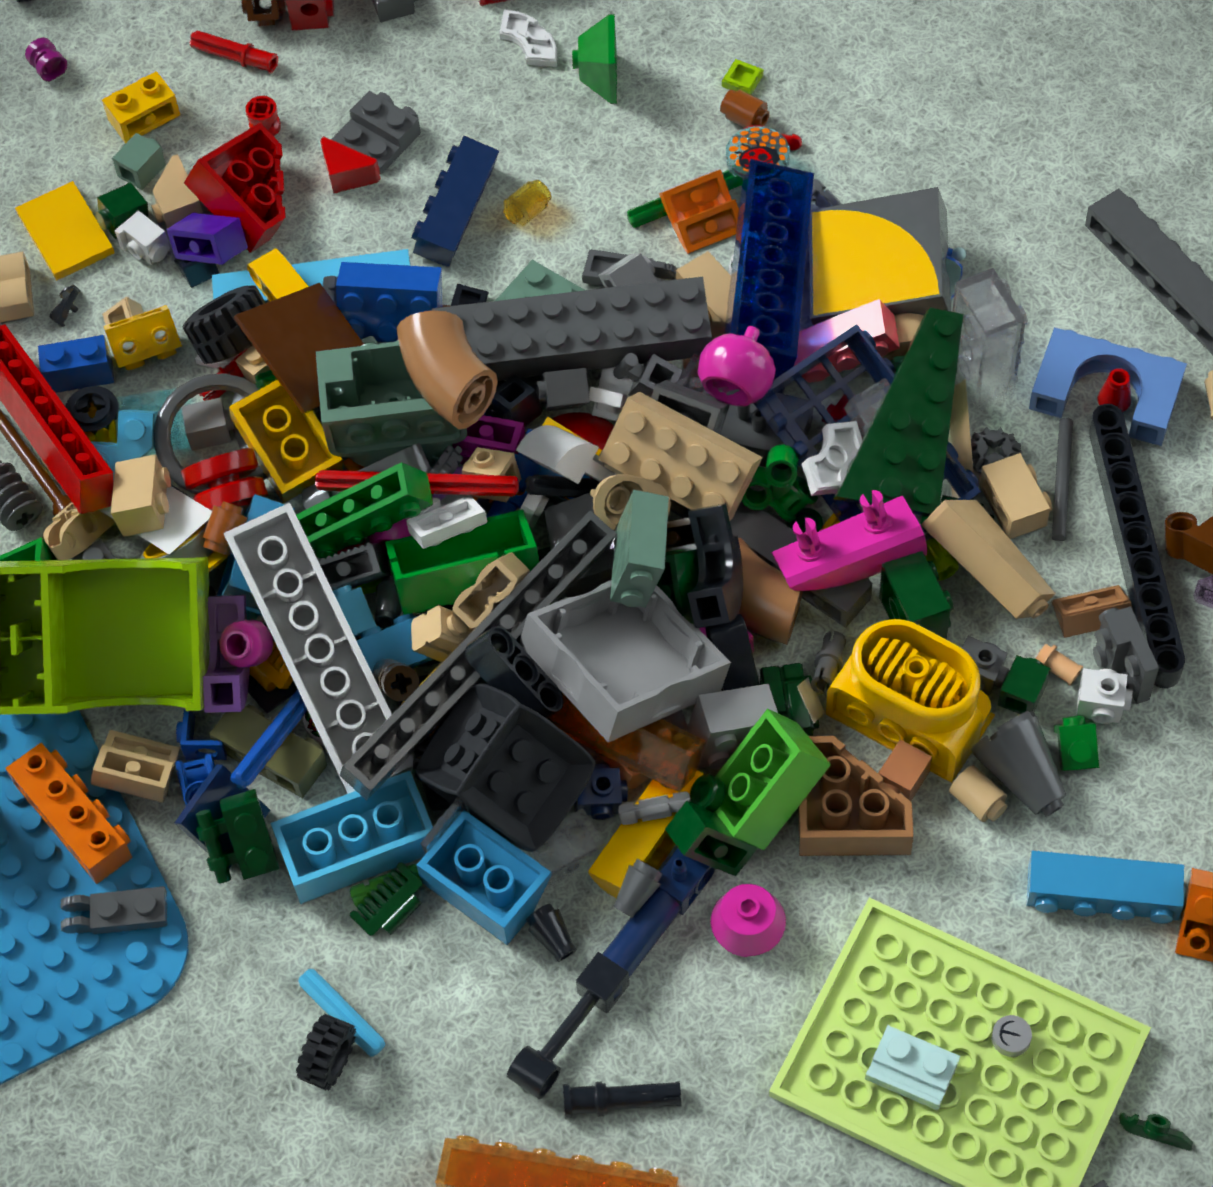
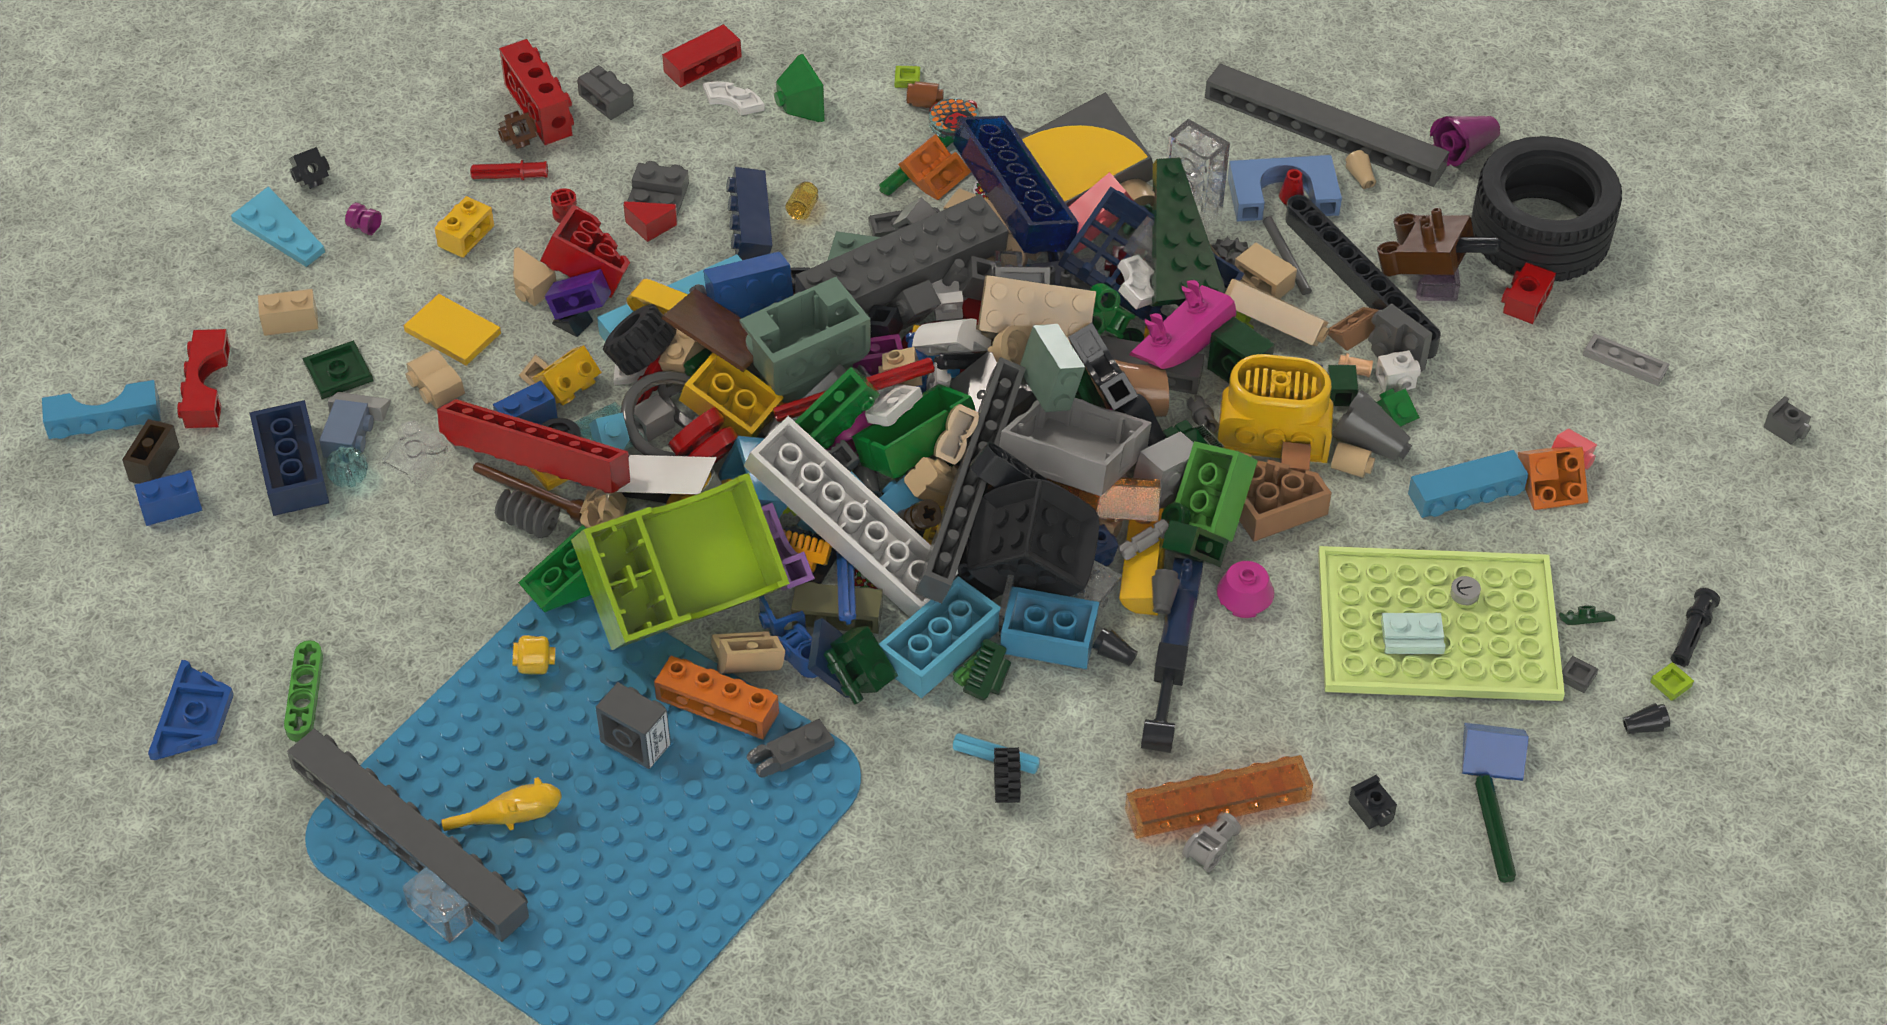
camera: 30 degrees left, 10 degrees down
(61, 311) = (486, 383): black piece -> none
(118, 206) = (494, 299): dark green brick -> none
(139, 161) = (485, 263): sand green brick -> none
(140, 495) = (652, 464): tan brick -> none
(143, 238) = (523, 313): white brick -> none
(221, 521) = (729, 462): dark orange brick -> none
(246, 643) = (790, 522): dark pink head -> none
(446, 367) = (850, 290): medium nougat brick -> none
(600, 1098) = (1214, 734): black pin -> none
(736, 365) = (1045, 231): dark pink piece -> none

